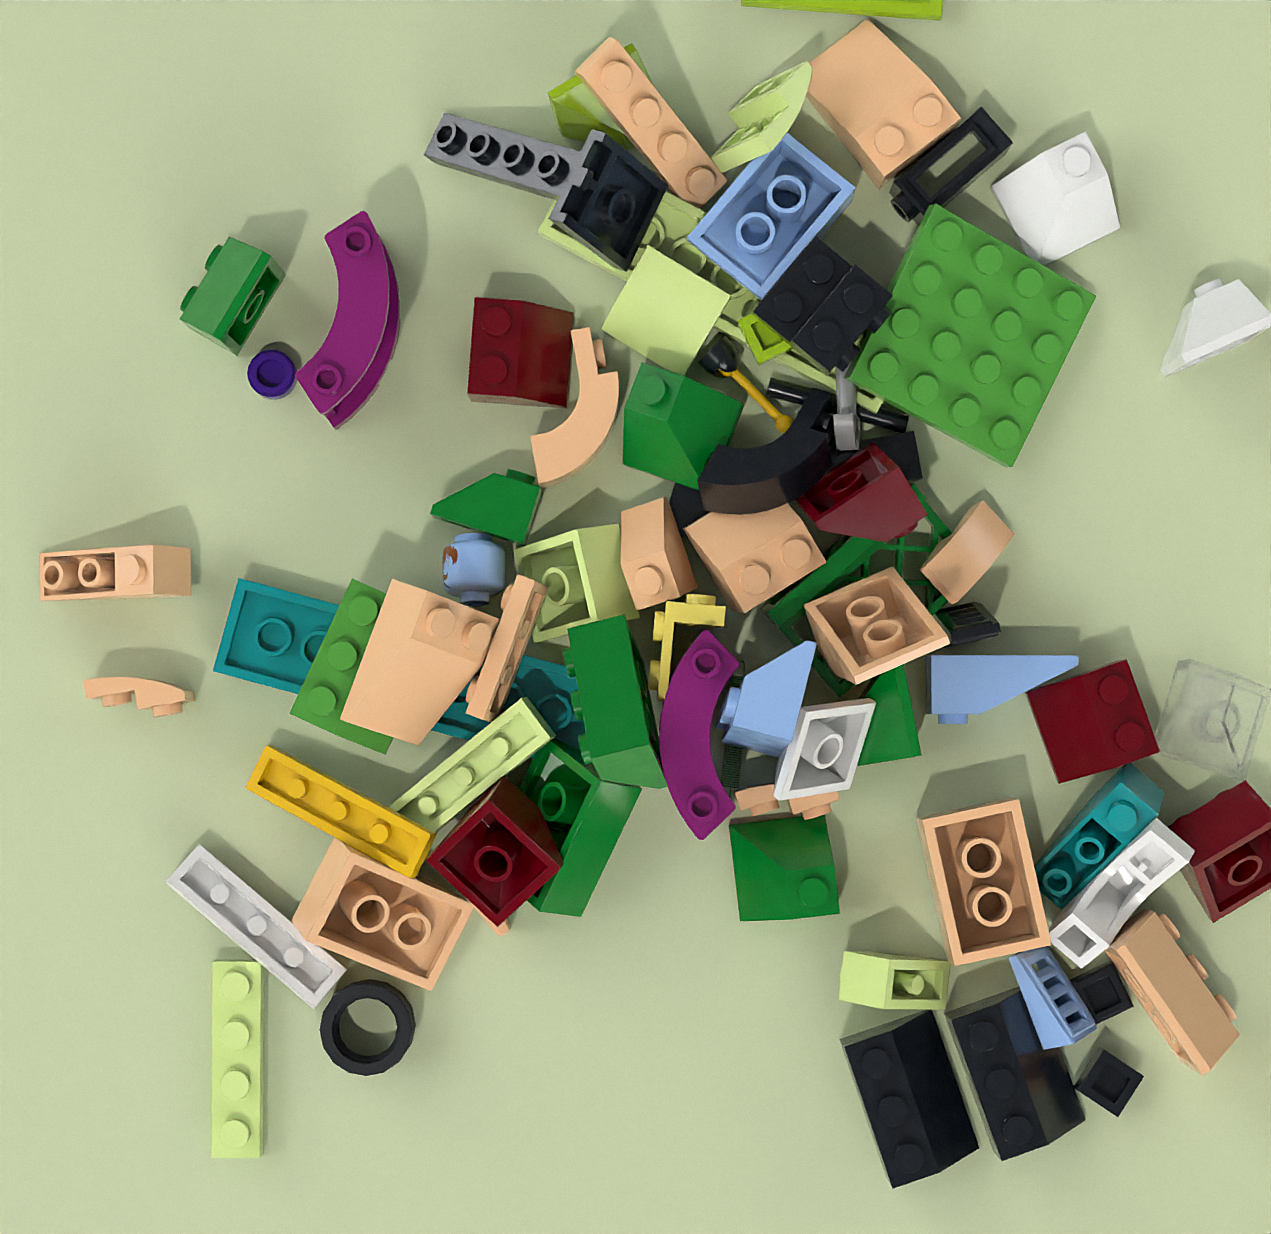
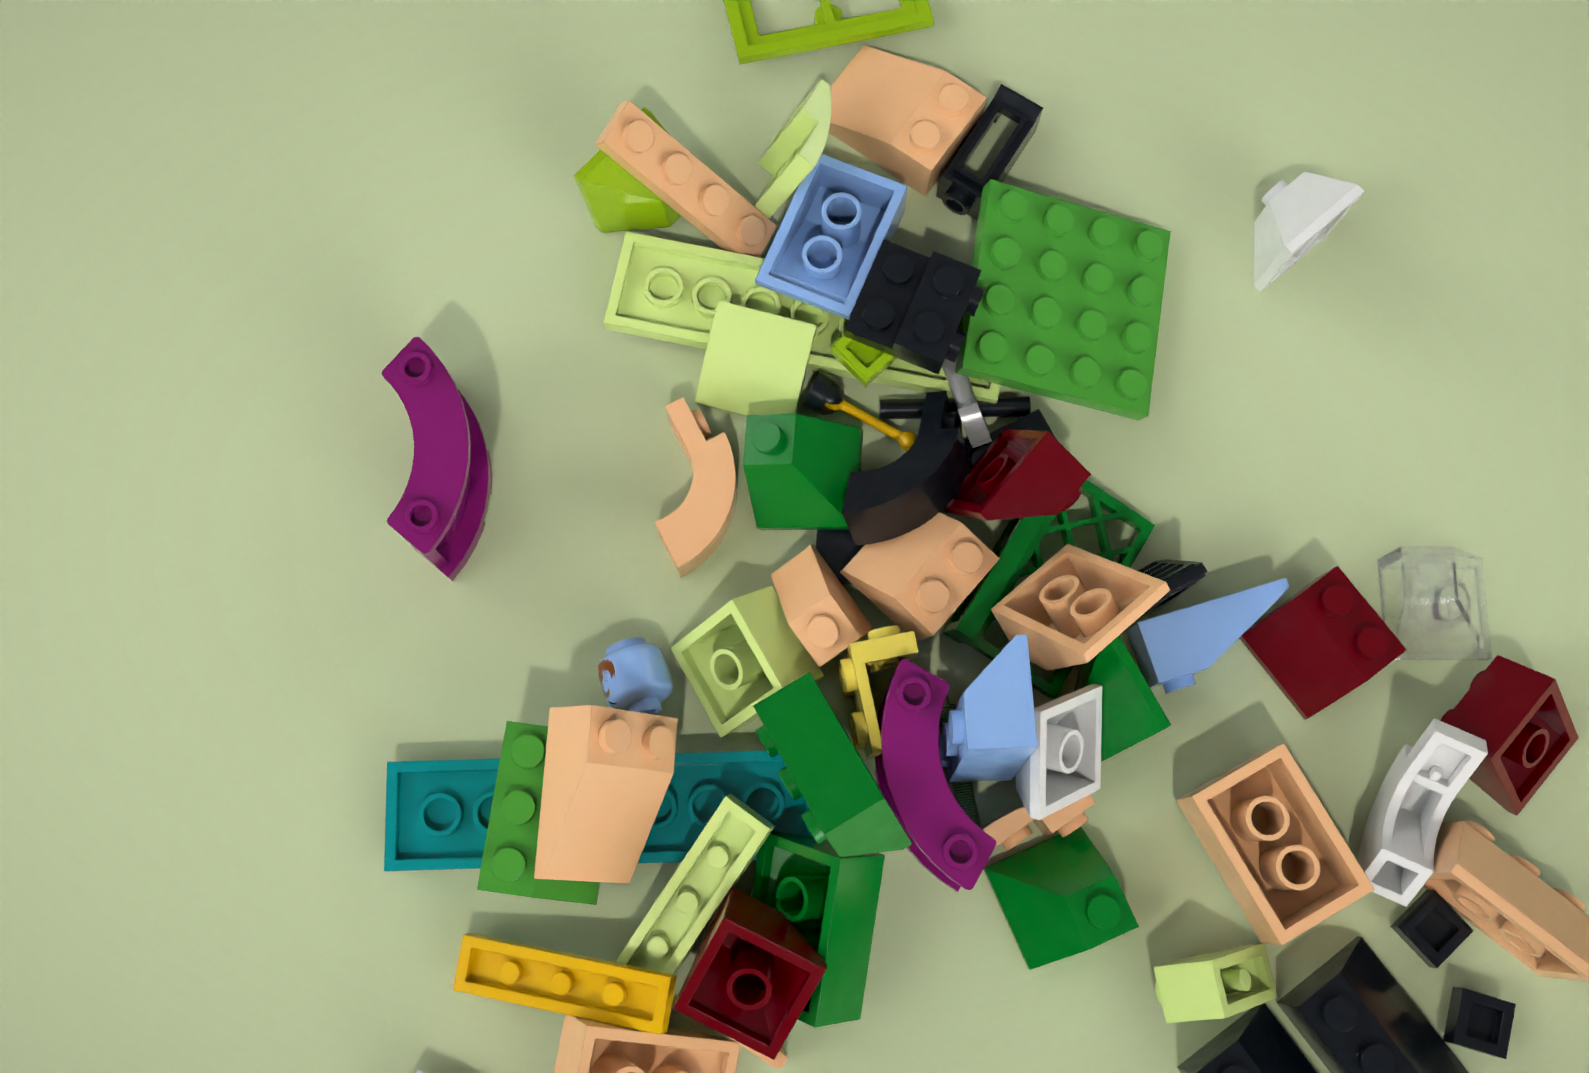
camera: 25 degrees left, 10 degrees down
(116, 573) = (254, 797): light nougat slope -> none
(150, 694) = (320, 919): light nougat slope -> none
(232, 294) = (307, 472): green slope -> none
(272, 374) = (370, 543): dark purple tile -> none
(494, 506) = (636, 605): green slope -> none
(519, 353) = (619, 447): dark red slope -> none
(520, 611) = (696, 700): light nougat plate -> none
(600, 191) = (650, 252): black bracket -> none
(967, 552) = (1135, 511): light nougat slope -> none
(1056, 1007) = (1390, 953): light blue slope -> none
(1059, 201) = (1103, 151): white slope -> none
(1098, 834) = (1372, 755): teal slope -> none

